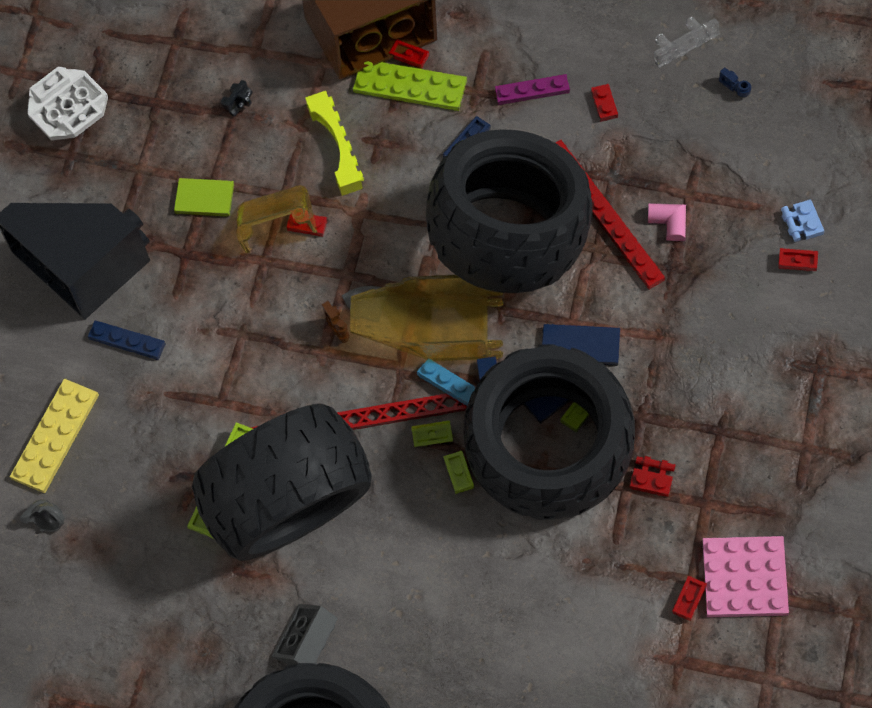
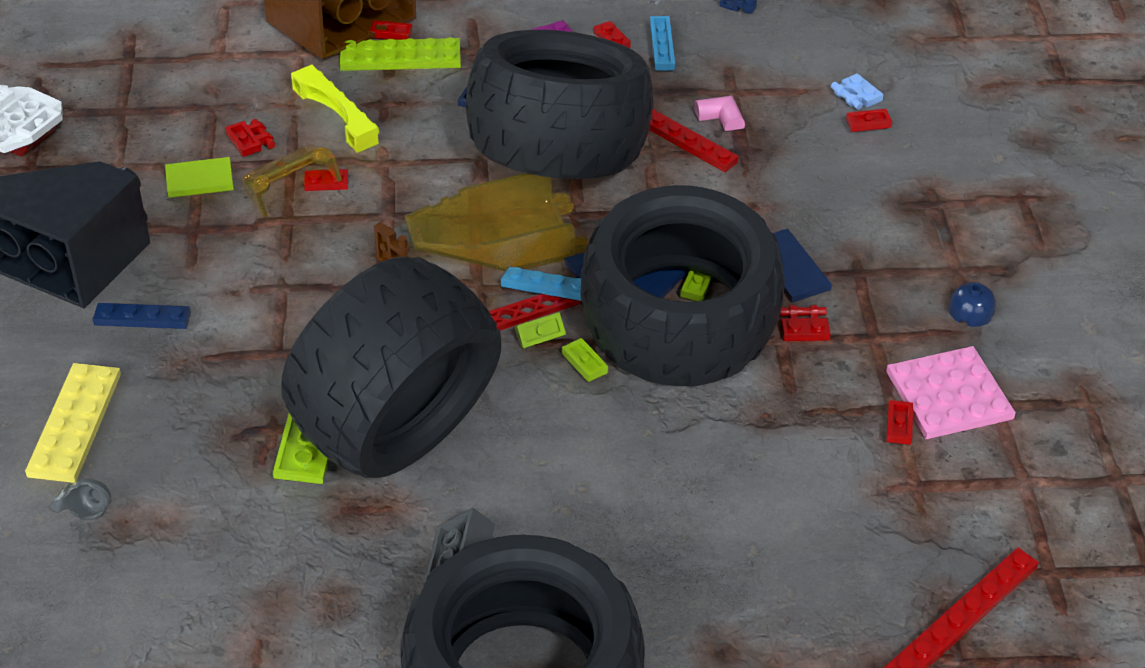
camera: 25 degrees left, 20 degrees down
(239, 97) = (212, 90): black hips -> none
(249, 161) = (244, 139): none -> red plate
(646, 122) = (662, 43): none -> dark azure plate
(664, 410) = (801, 273): none -> dark blue tile
(802, 492) = (972, 304): none -> dark blue cylinder

